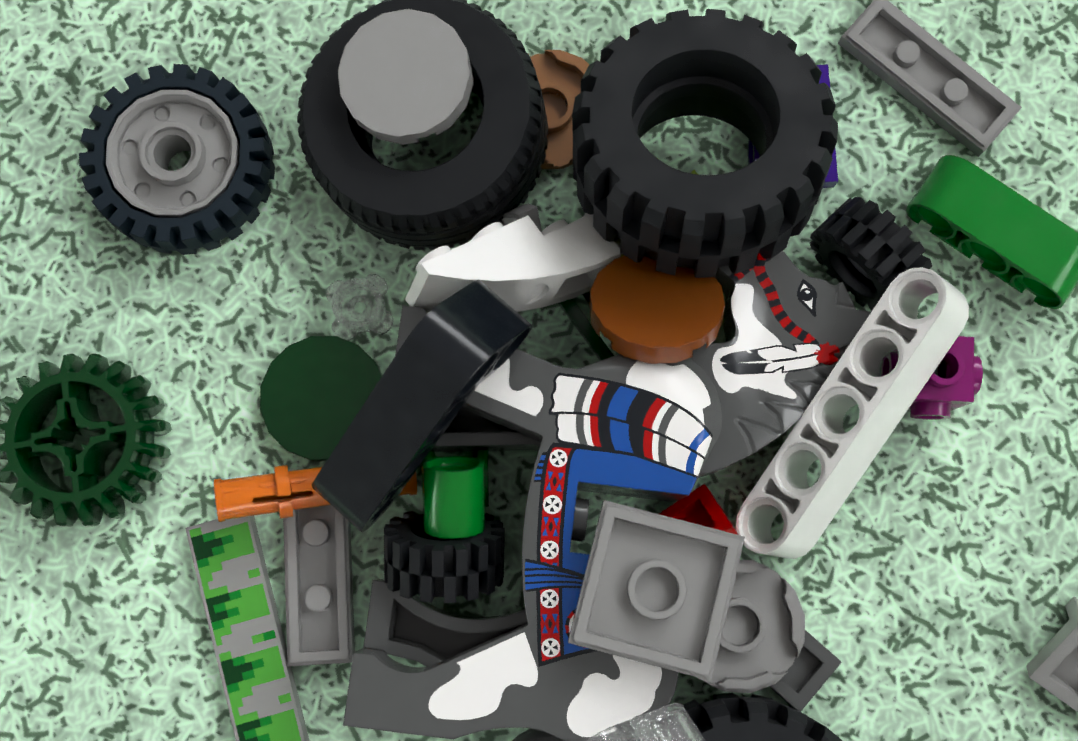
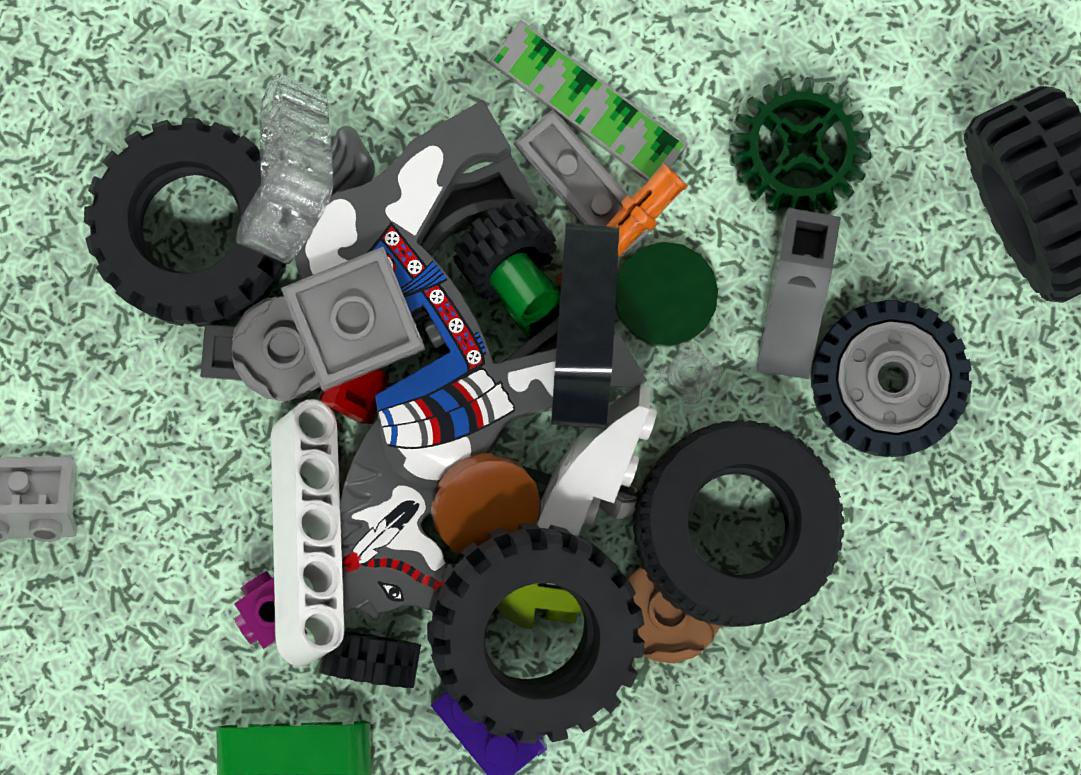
camera: 145 degrees right, 5 degrees up
(191, 304) = (798, 292): none -> dark grey slope
(405, 76) = (762, 531): light grey tile -> none

